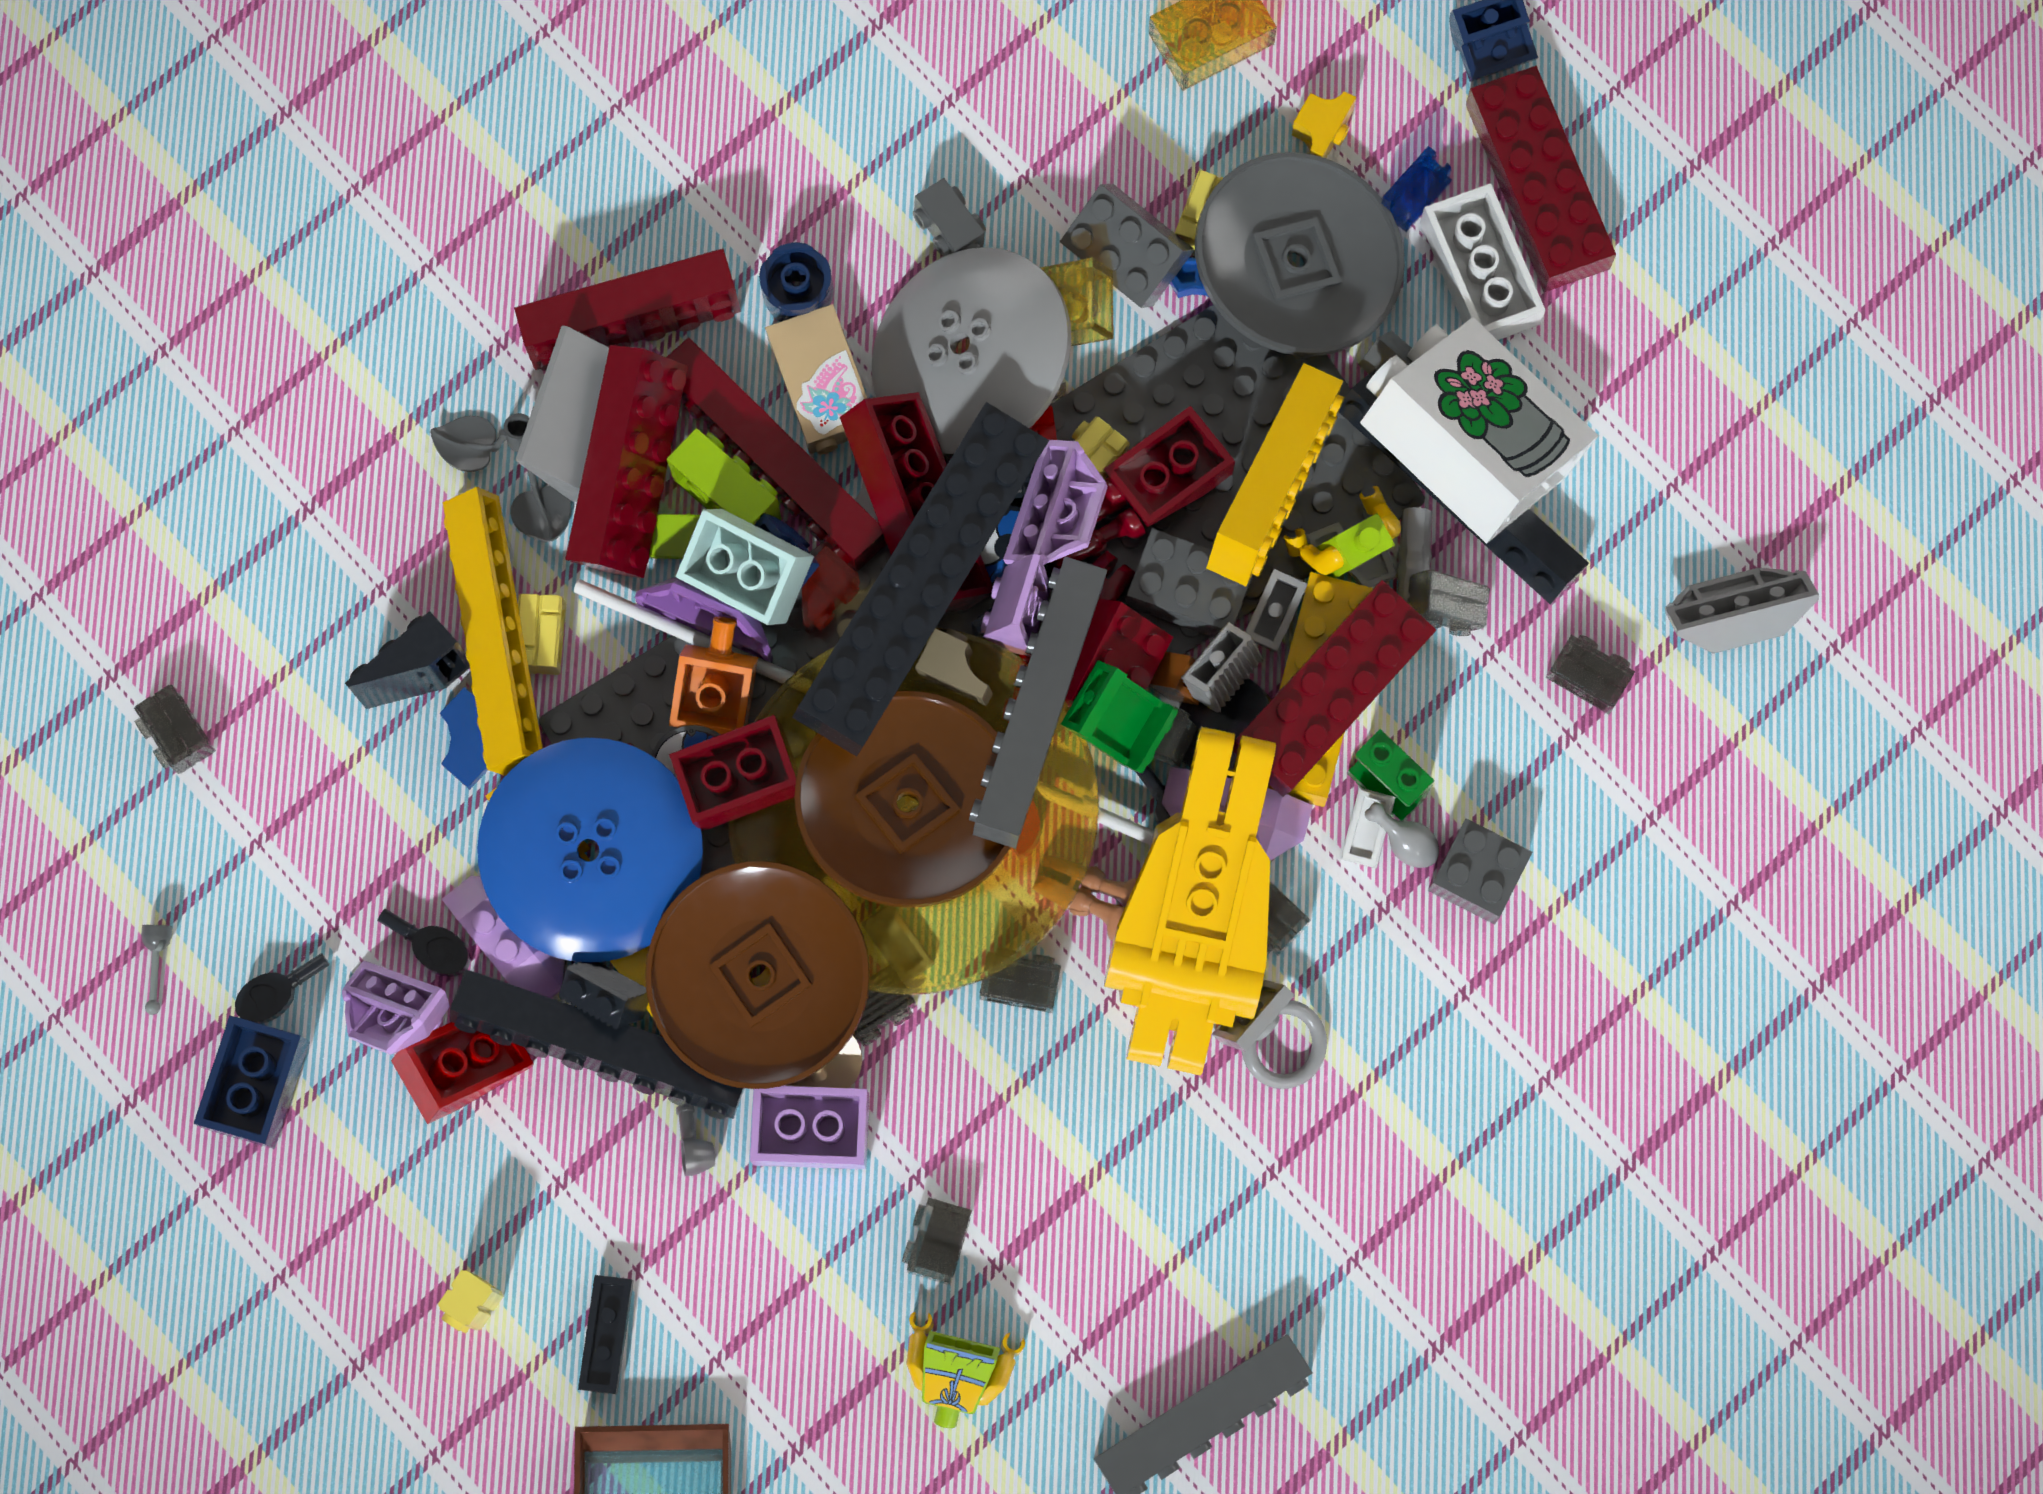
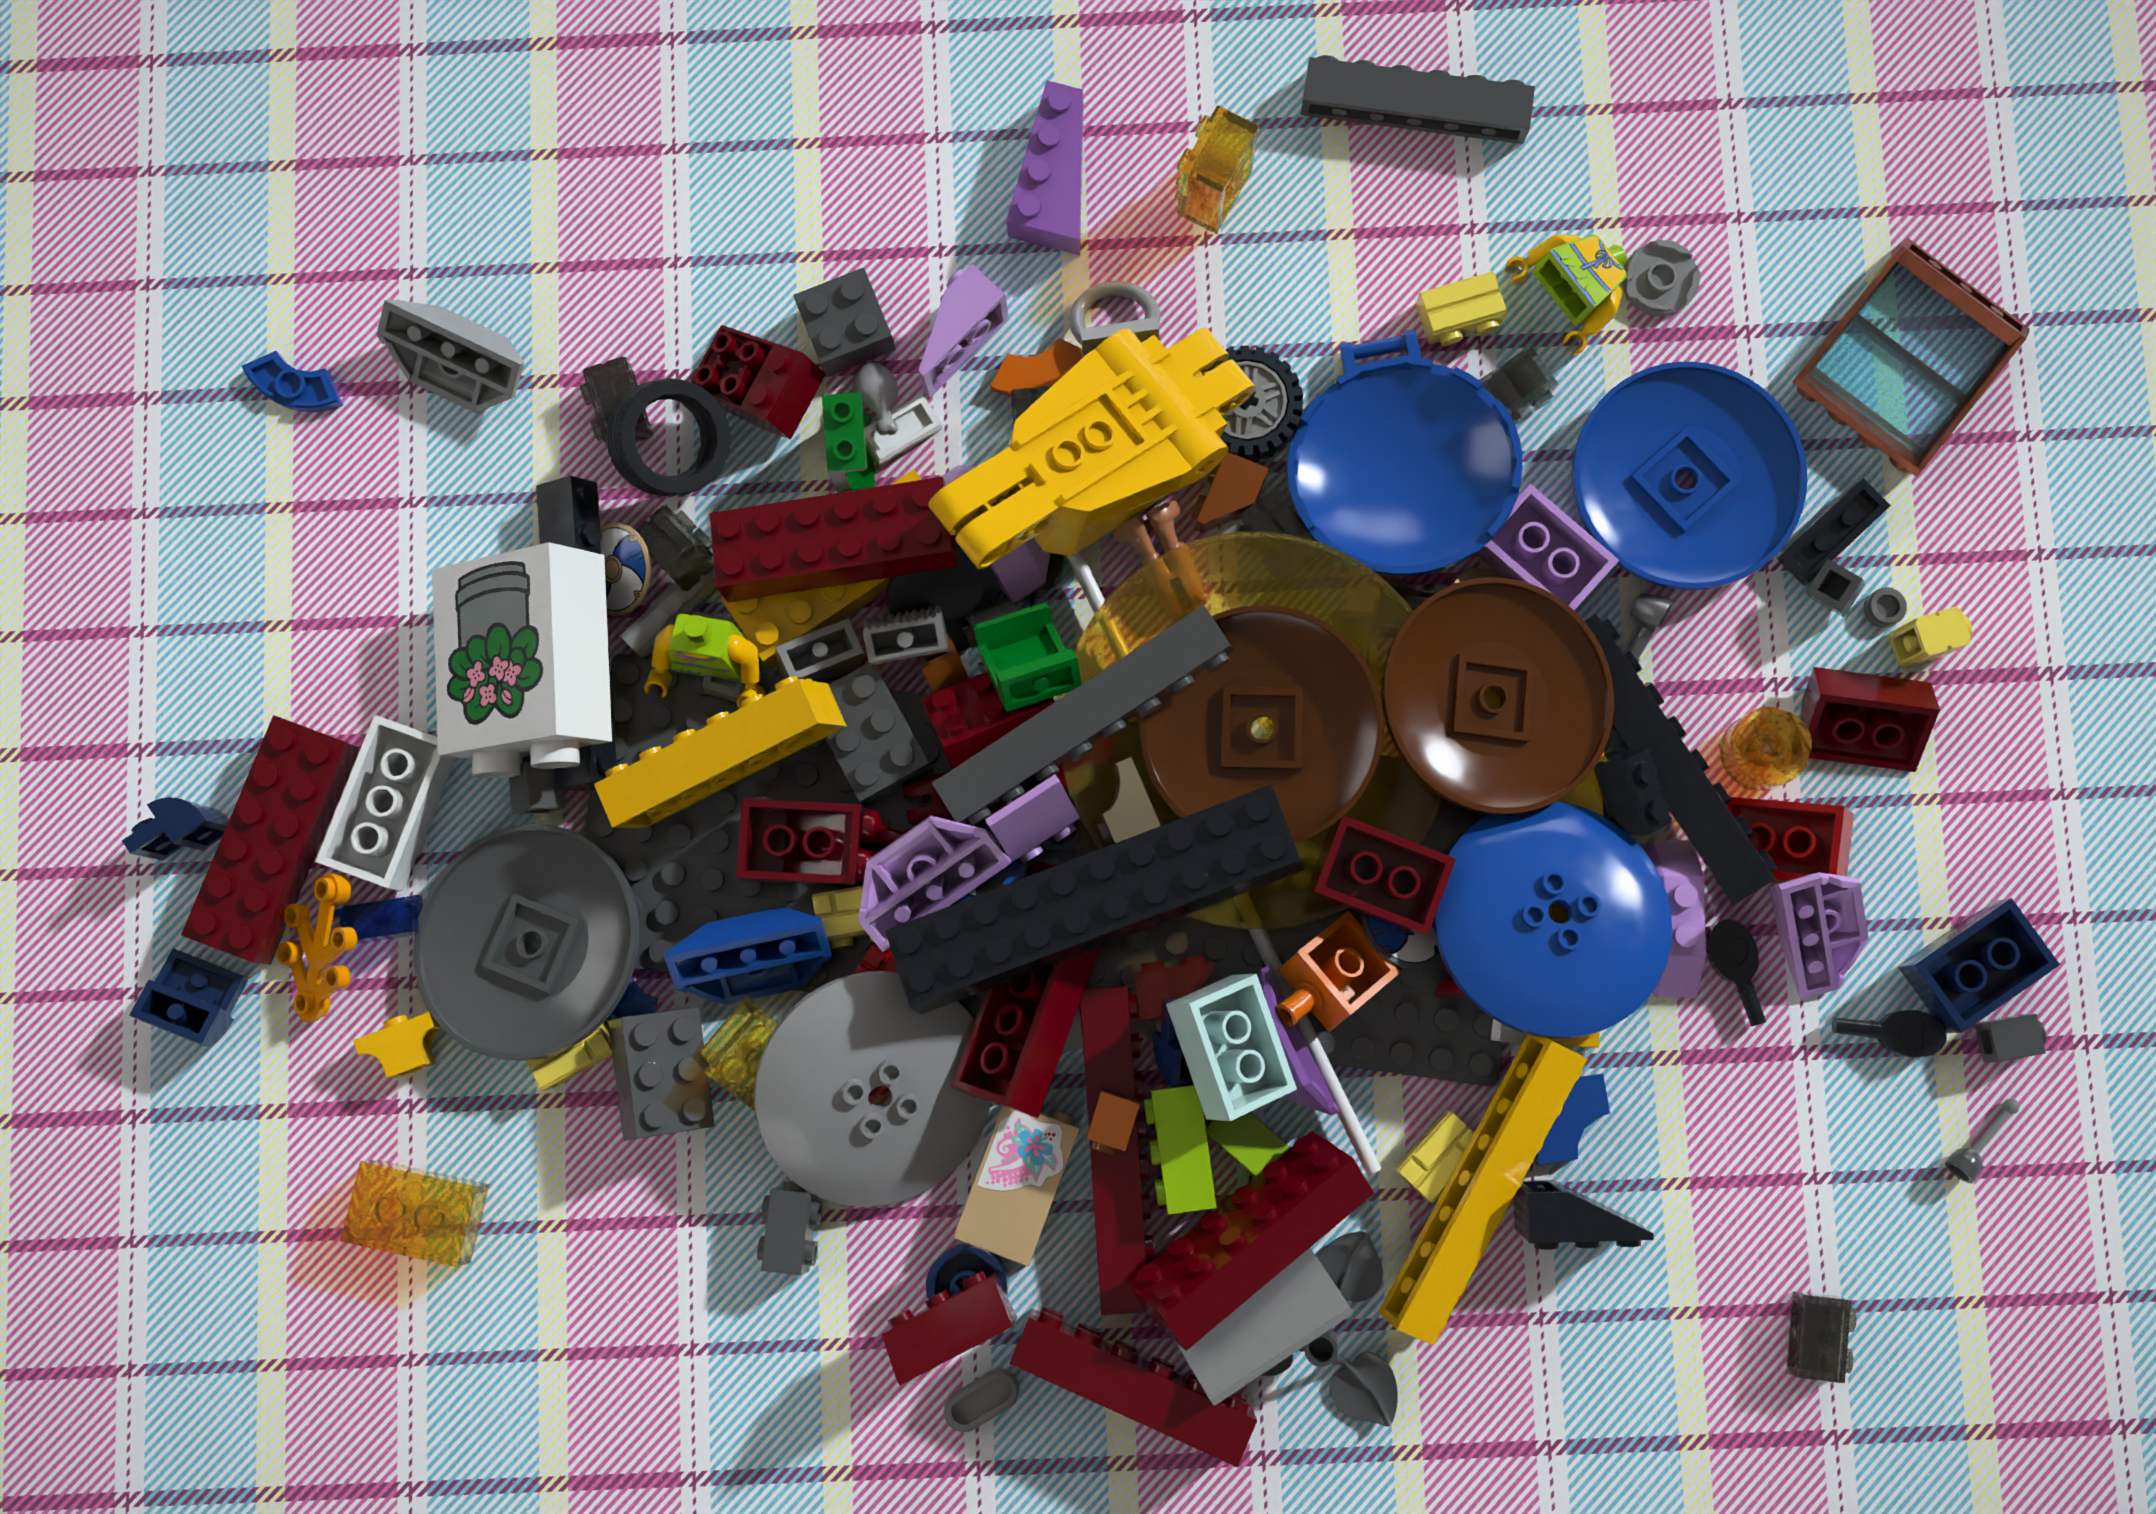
camera: 135 degrees left, 5 degrees up
(188, 1053) = (2011, 1037): none -> dark grey brick
(472, 1206) = (1868, 718): none -> dark red slope
(522, 1310) = (1885, 607): none -> flat silver tile
(524, 1095) = (1788, 745): none -> clear yellow brick
(570, 1283) = (1835, 588): none -> dark grey brick
(694, 1272) = (1721, 432): none -> blue dish
(725, 223) = (981, 1400): none -> light grey tile
(783, 235) = (947, 1326): none -> dark red slope
(786, 459) = (1112, 1122): none -> dark orange brick
(897, 1434) = (1661, 278): none -> light grey tile
(973, 1107) = (1404, 461): none -> blue dish
(1028, 1273) = (1461, 309): none -> light yellow brick
(1083, 984) = (1233, 490): none -> dark orange slope
(1108, 1083) = (1274, 408): none -> wheel
(1138, 368) = (749, 955): none -> blue wedge
(1303, 1209) = (1215, 168): none -> clear yellow brick
(1305, 958) = (1036, 370): none -> orange tile
(1392, 940) = (965, 321): none -> lavender slope
(1412, 104) = (313, 997): none -> light orange plant
(1424, 1109) = (1050, 180): none -> medium lavender wedge
(1471, 558) = (625, 568): none -> shield
(1483, 662) = (713, 436): none -> black tyre
(1505, 775) = (759, 380): none -> dark red slope
(1608, 133) = (175, 826): none -> dark blue brick
(1837, 493) = (292, 387): none -> blue tile

